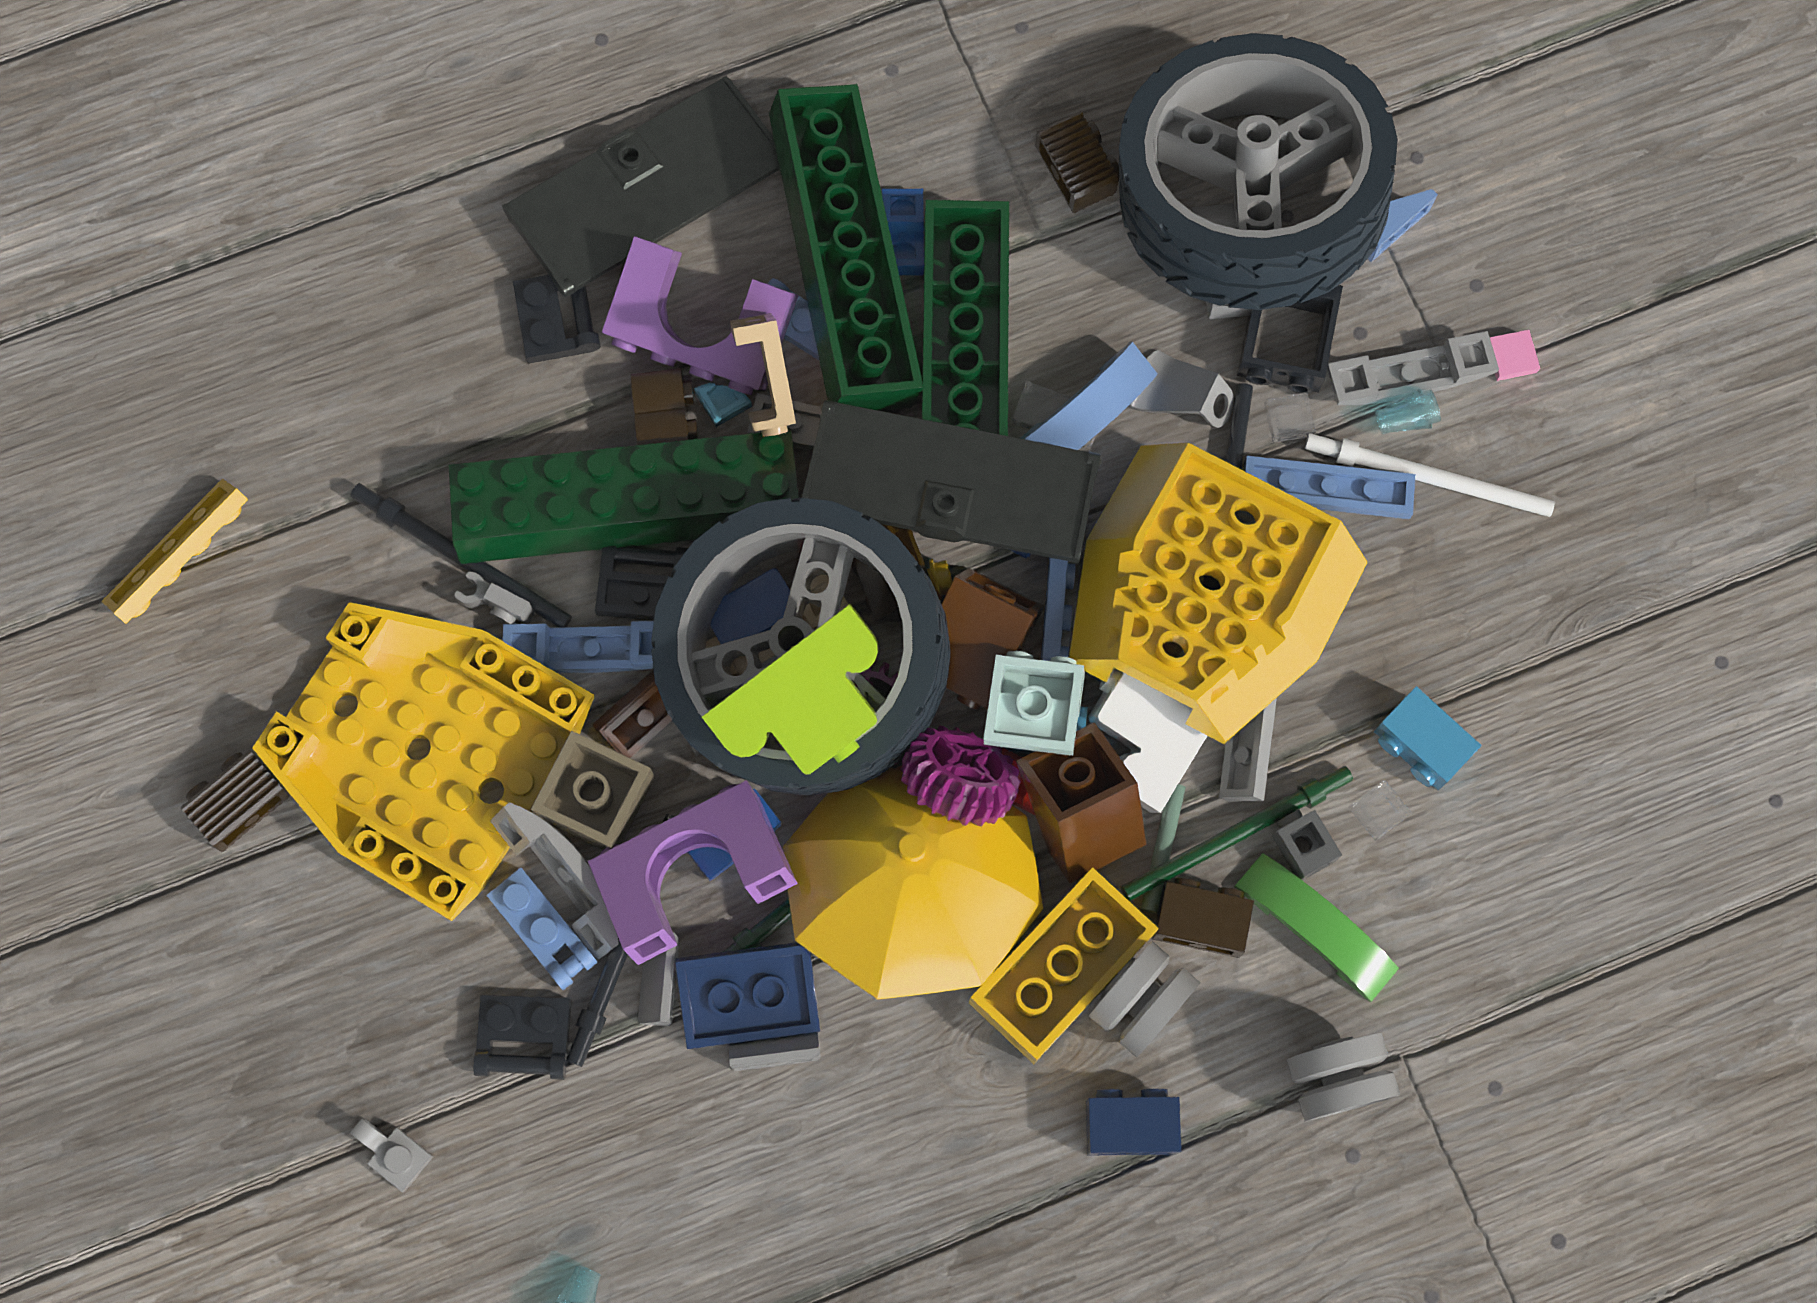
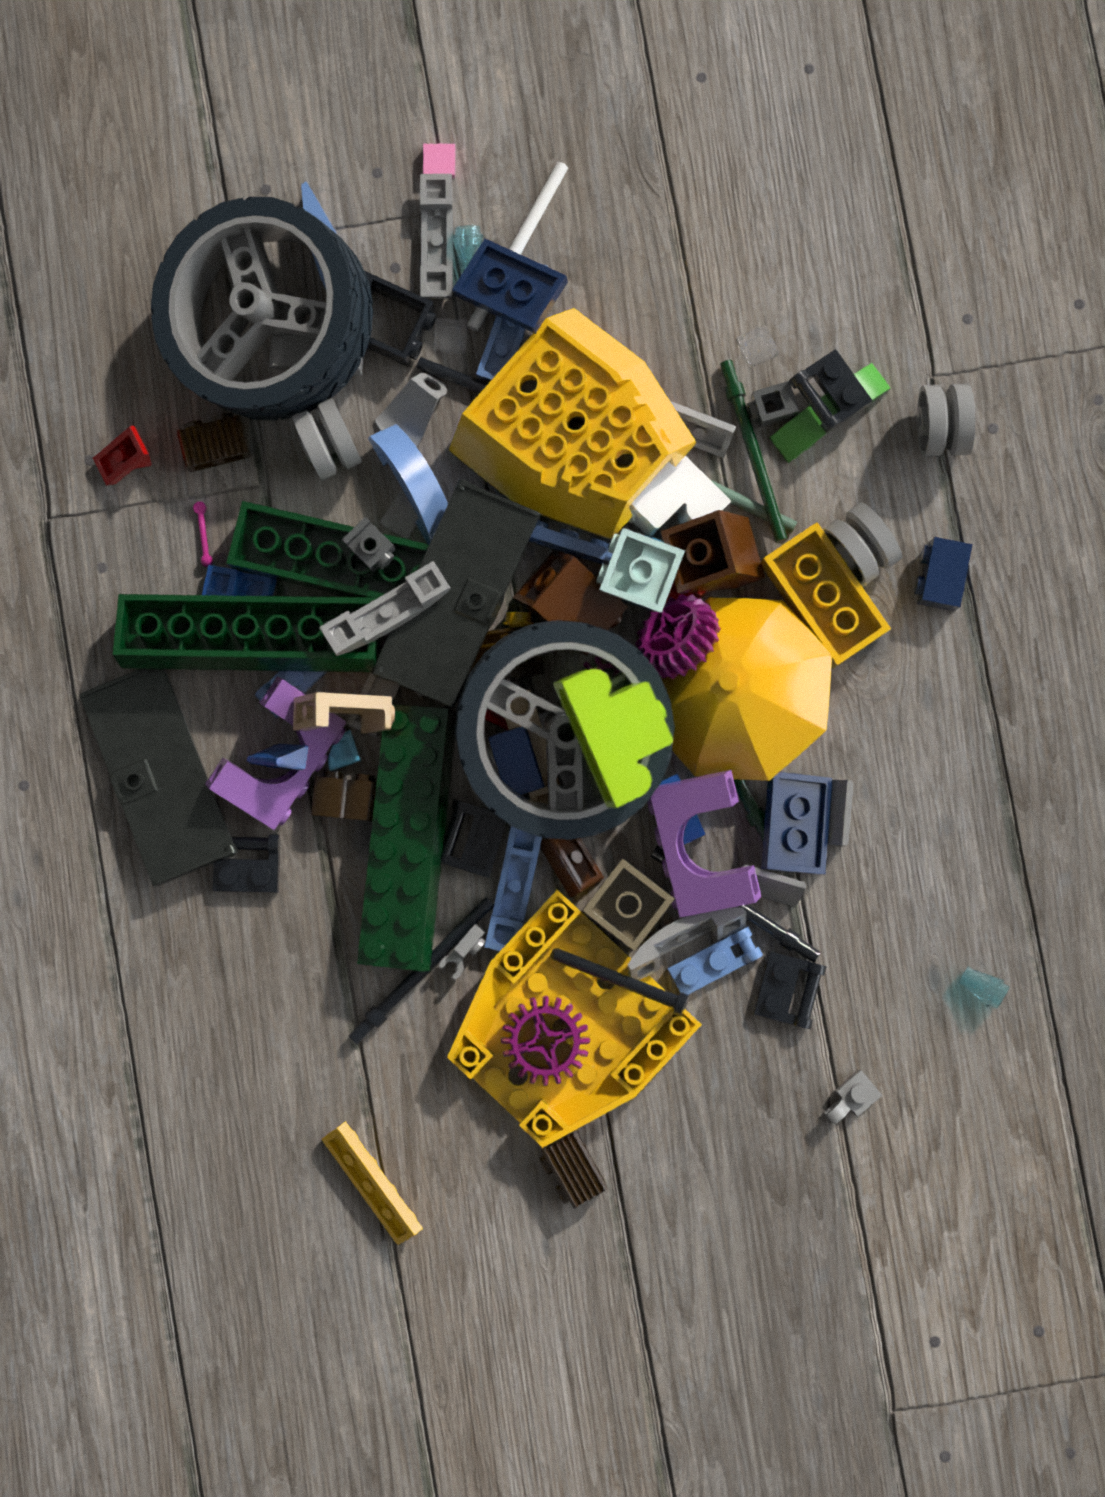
camera: 70 degrees left, 10 degrees up
(378, 728) = (554, 1068): none -> magenta gear
(472, 880) = (677, 1002): none -> black bar
(696, 321) = (281, 756): none -> blue slope
(902, 396) = (386, 612): none -> light grey slope
(991, 167) = (200, 509): none -> dark pink hinge
(995, 345) = (356, 540): none -> dark grey brick
(1035, 59) = (122, 456): none -> red slope
(1113, 287) = (326, 439): none -> light grey wheel
(1204, 918) = (810, 489): dark brown brick -> none
(1352, 923) = (838, 385): none -> black plate
(1371, 468) = (510, 285): none -> dark blue plate
(1426, 739) = (715, 300): dark azure brick -> none

